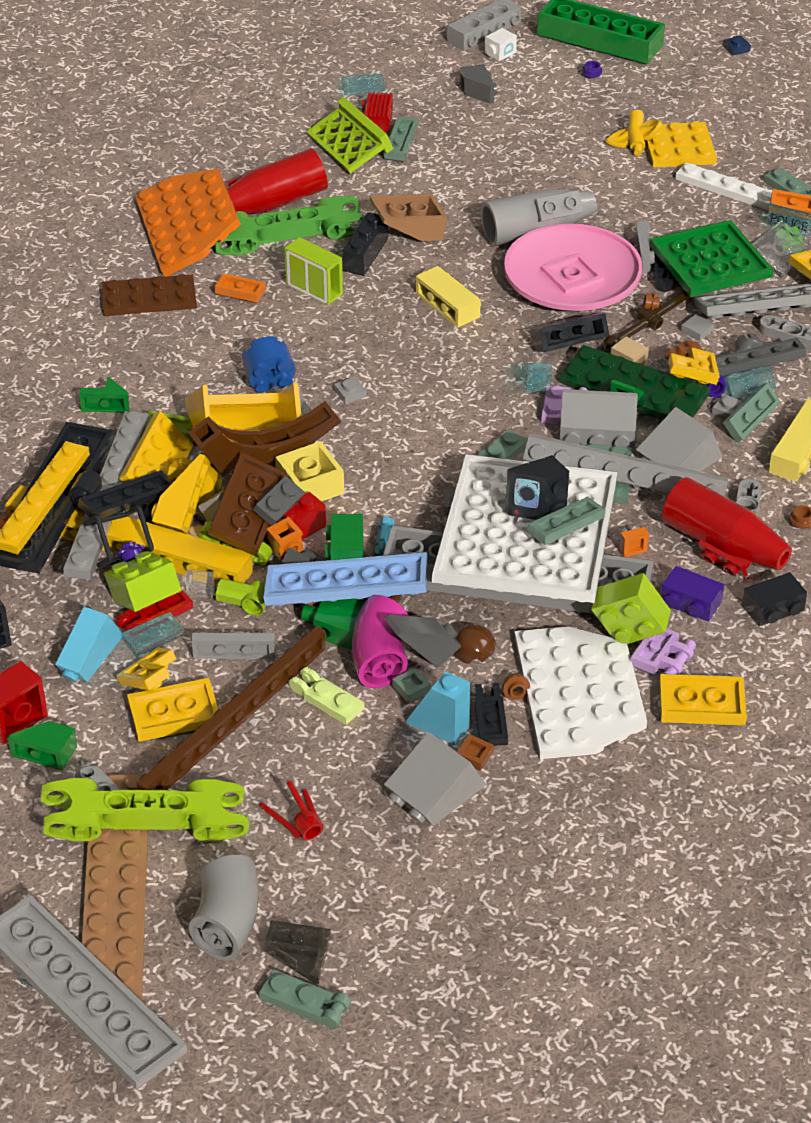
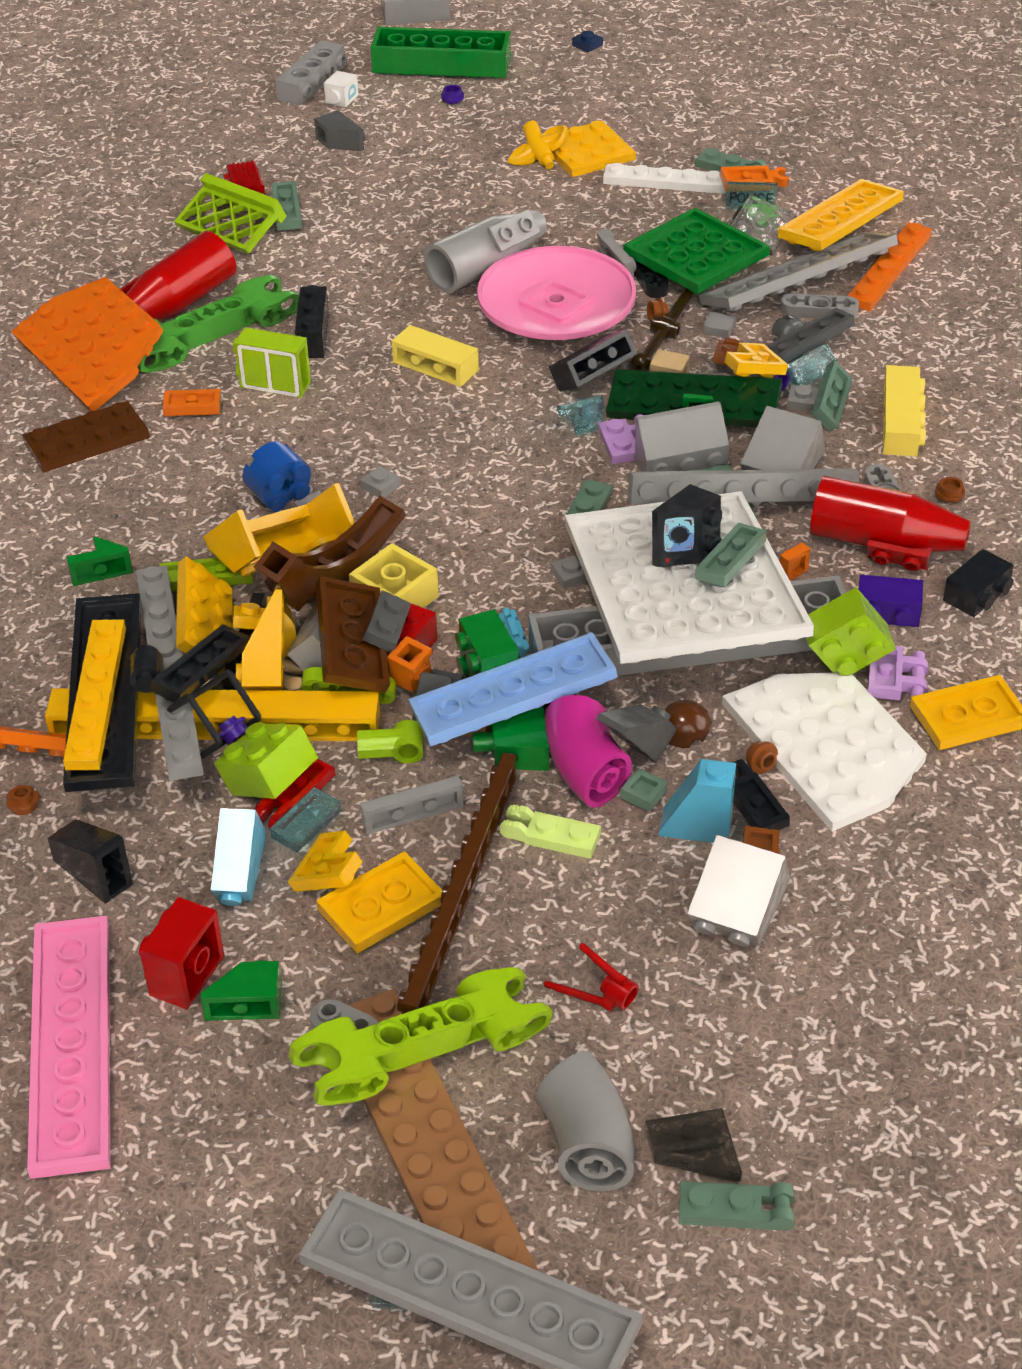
camera: 20 degrees left, 0 degrees up
(199, 584) = (332, 744): clear brick -> none
(363, 84) = (211, 159): clear light blue plate -> none
(412, 214) = (353, 277): medium nougat slope -> none

